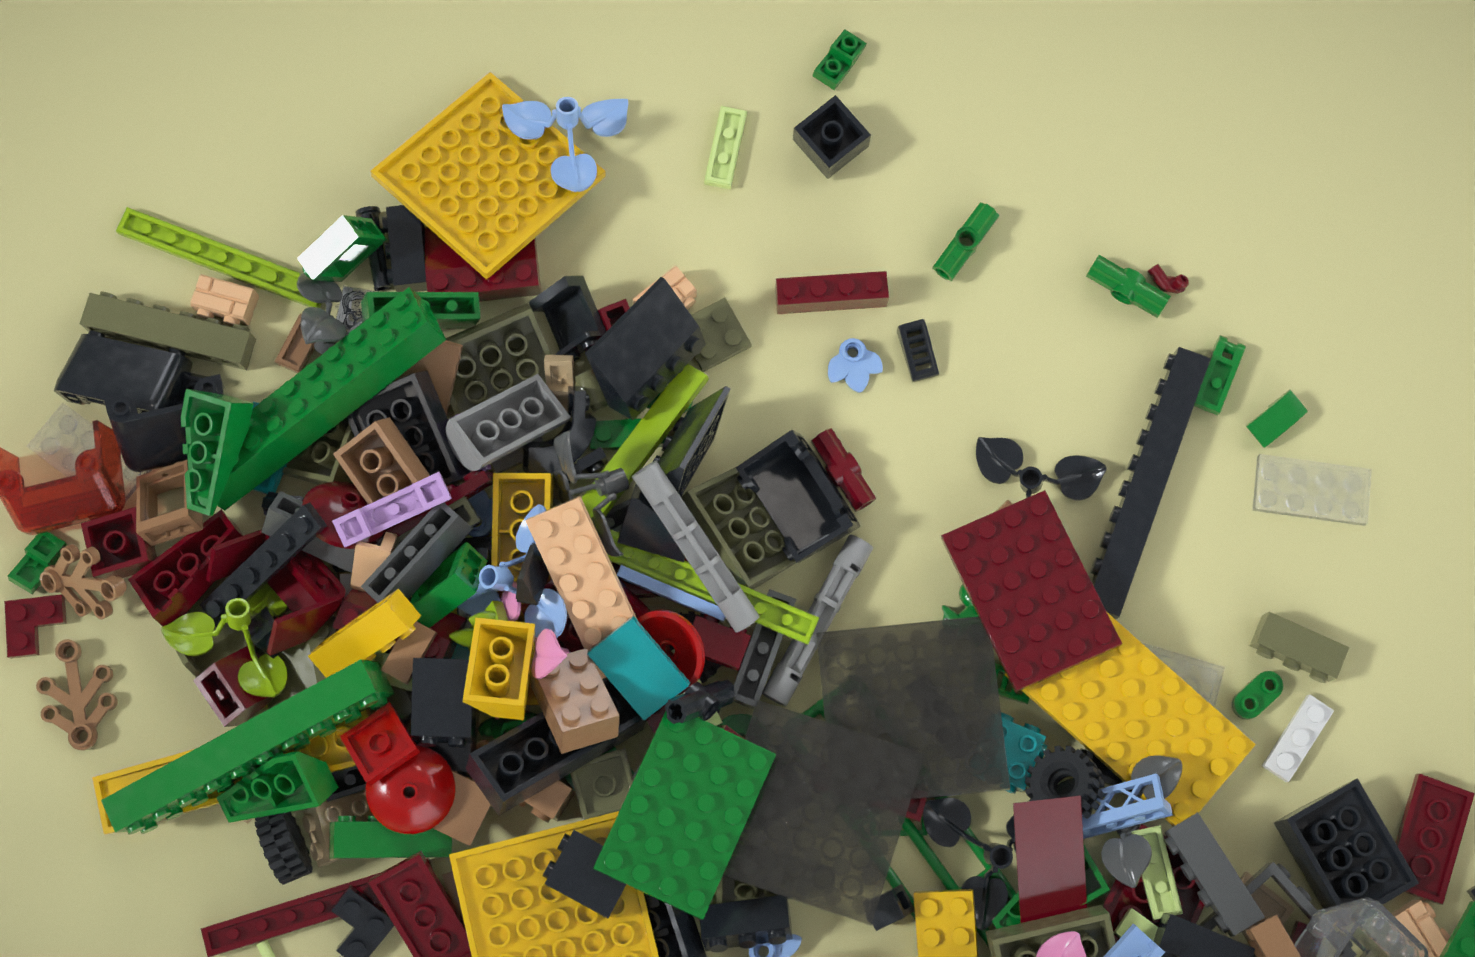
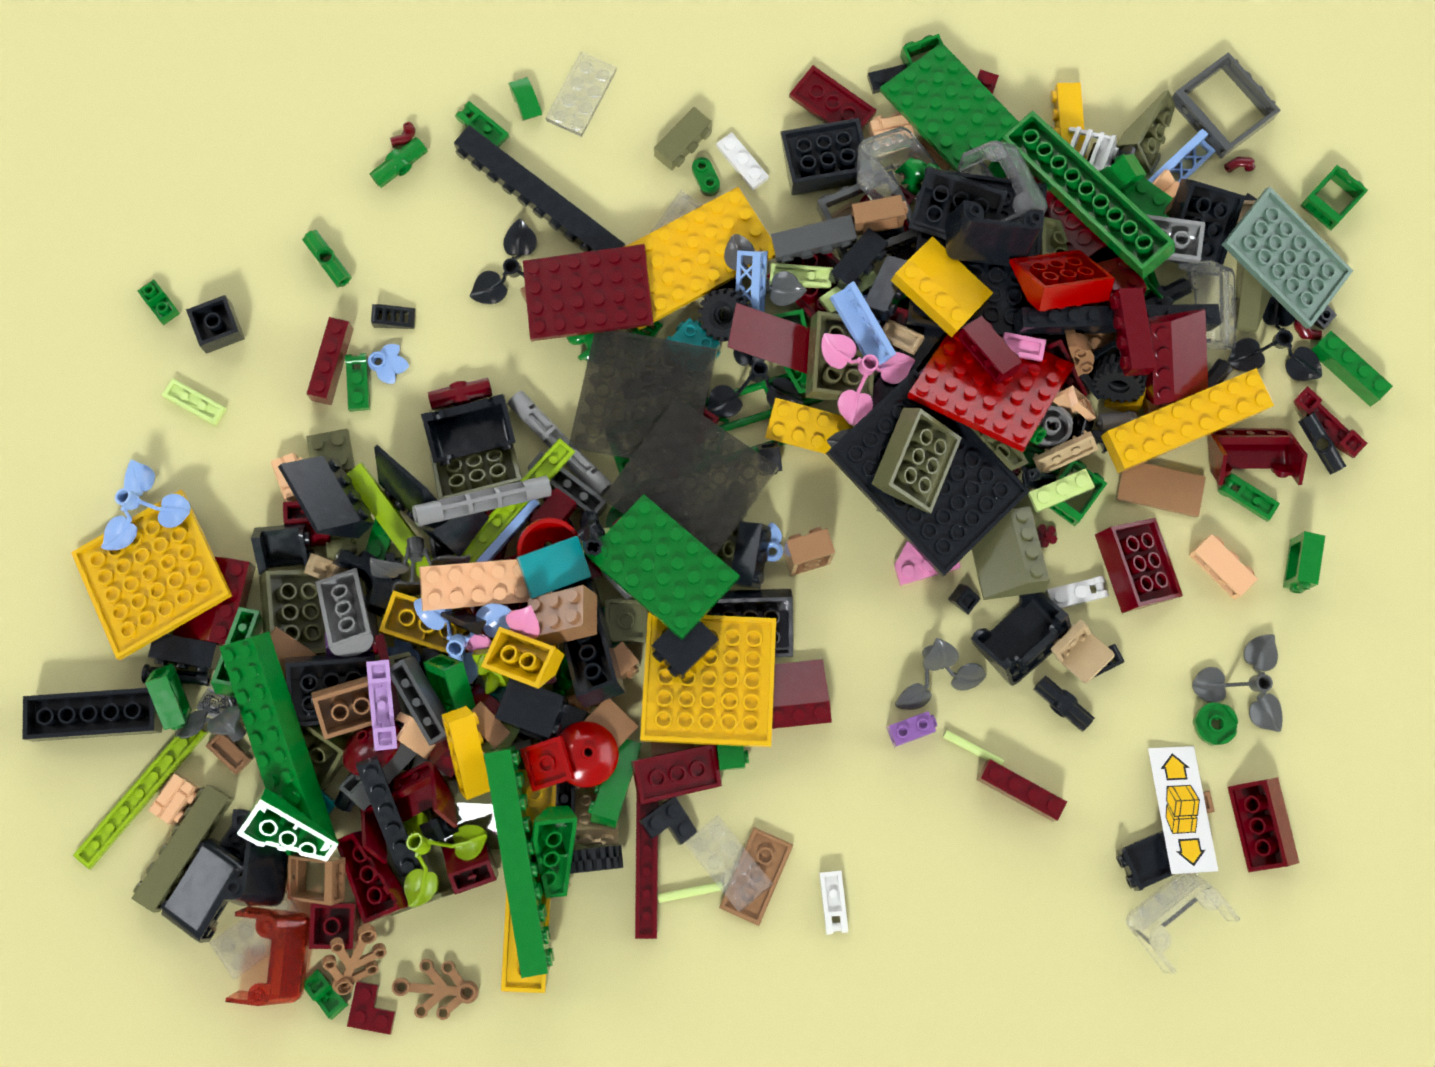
camera: 75 degrees left, 0 degrees up
(295, 162) = (89, 715): none -> black brick
(816, 336) = (357, 382): none -> green plate

